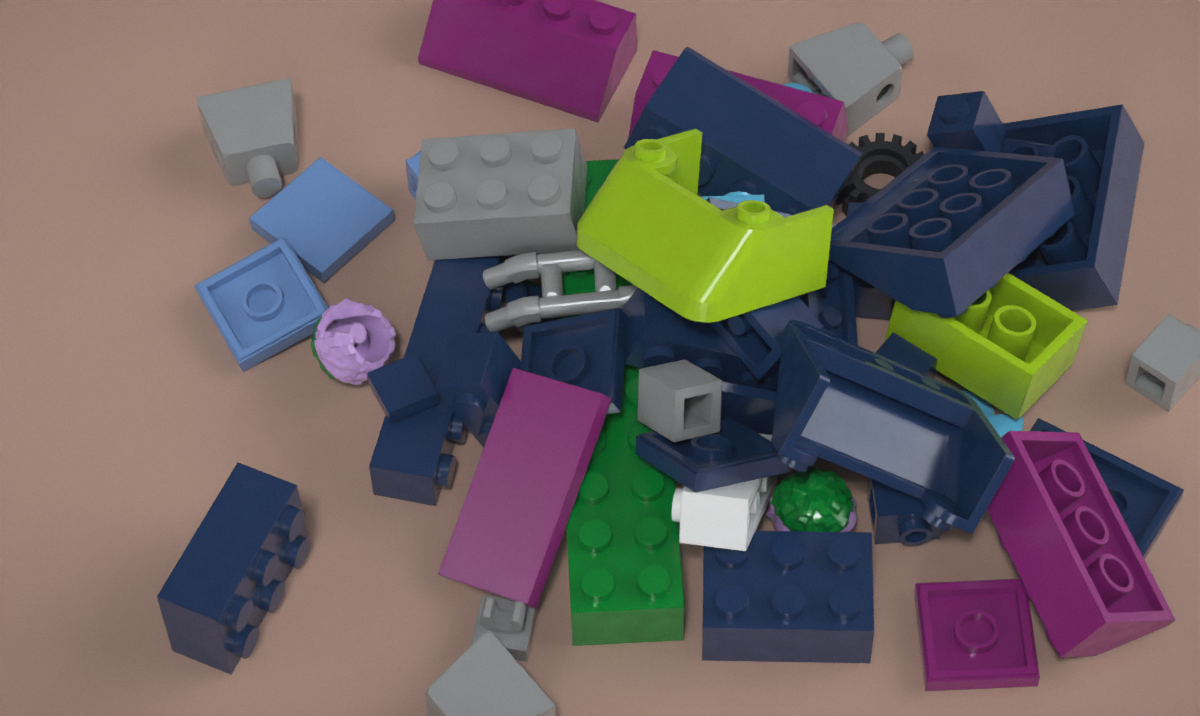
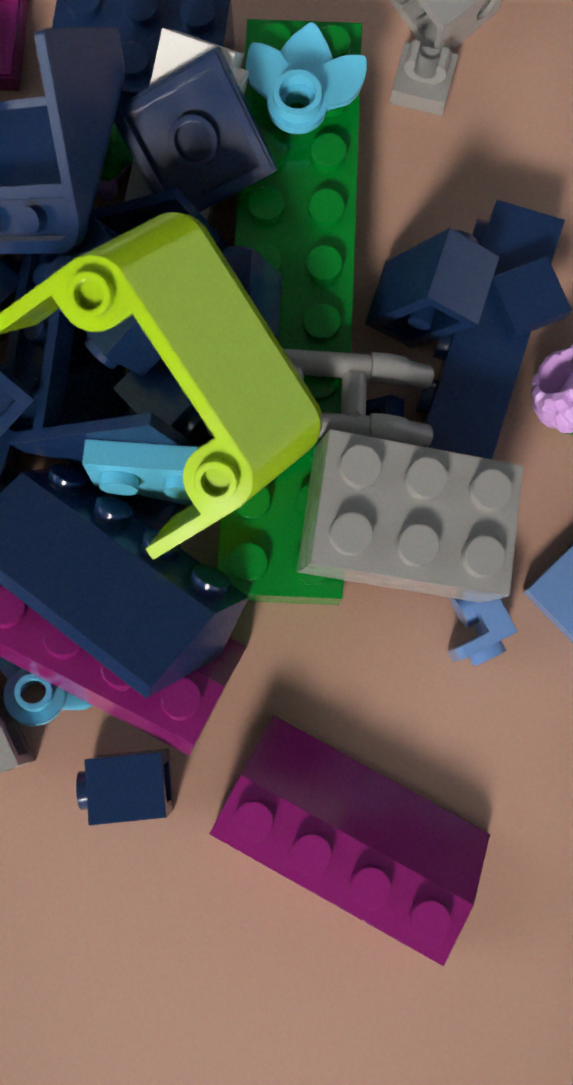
camera: 175 degrees left, 25 degrees up
(525, 487) = (396, 166): magenta tile -> none
(580, 352) = (338, 277): dark blue tile -> none
(620, 535) = (304, 75): none -> medium azure plate
(679, 400) = (224, 196): light grey brick -> none
(711, 39) = (126, 787): none -> dark blue brick

